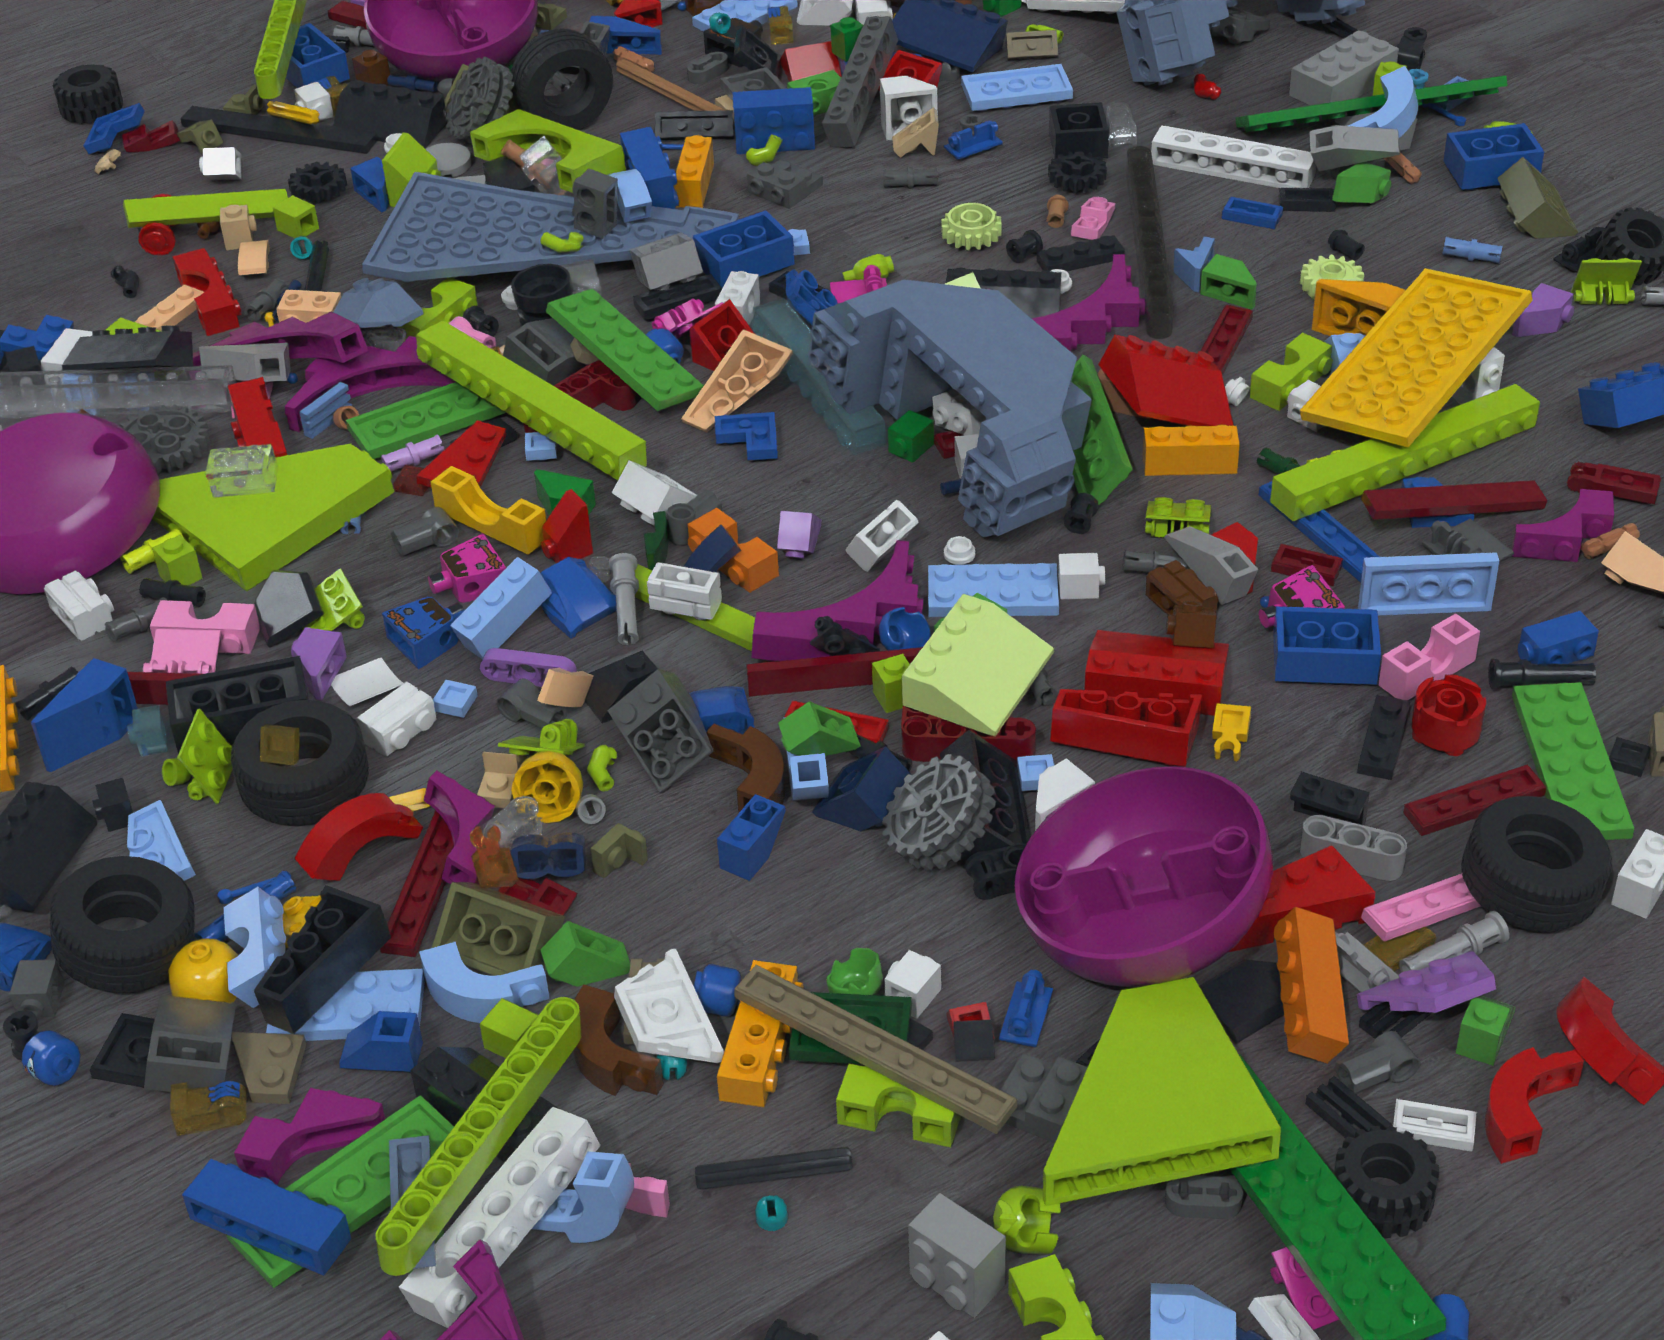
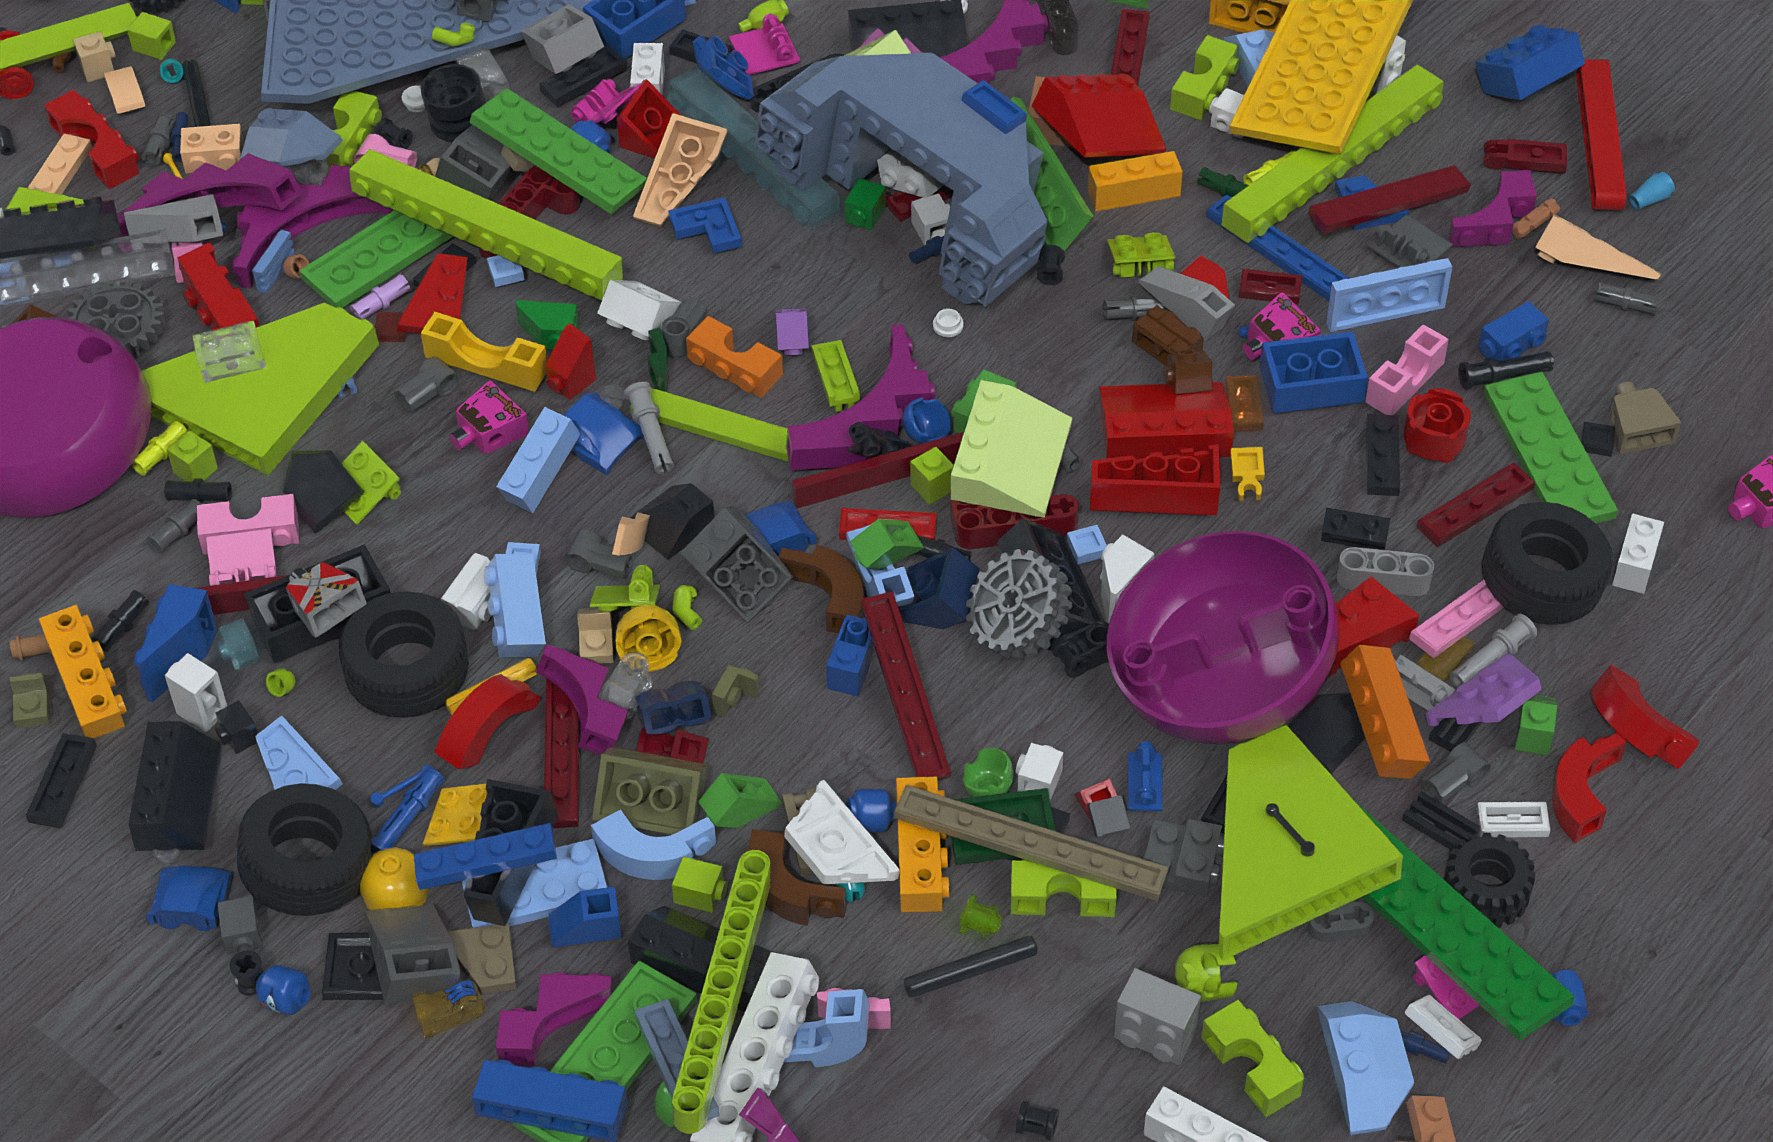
camera: 15 degrees left, 10 degrees up
(79, 604) = (110, 520): white brick -> none
(83, 761) = (195, 691): none -> white brick
(206, 758) = (311, 667): lime hinge -> none
(235, 691) = (324, 596): none -> light grey torso
(257, 926) = (428, 823): light blue arch -> none
(279, 744) = (392, 646): clear yellow tile -> none
(288, 955) = (485, 856): none -> blue plate
(321, 658) = (377, 532): medium lavender slope -> none
(365, 682) = (425, 555): white sticker -> none
(422, 629) = (464, 491): blue torso -> none
(424, 732) = (515, 605): none -> light blue brick
(492, 864) = (628, 725): clear orange plate -> none
(498, 665) = (561, 516): medium lavender beam -> none
(598, 807) = (697, 648): light grey hinge -> none
(684, 591) = (709, 413): white brick -> none
(713, 551) = (718, 372): dark blue slope -> none
(773, 1222) = (974, 1008): teal hinge -> none
(793, 873) = (905, 686): none -> dark red tile
(797, 1119) = (980, 918): none -> clear neon green brick
(829, 577) = (836, 374): none -> lime hinge
(881, 535) = (874, 321): white brick -> none
(1017, 587) = (1011, 353): light blue plate -> none
(1046, 344) = (994, 107): none -> blue tile
(1079, 576) = (1068, 333): white brick -> none
(1172, 1100) = (1307, 847): none -> black hinge
(1236, 391) = (1159, 106): white plate -> none
(1245, 666) = (1245, 402): none -> clear orange plate

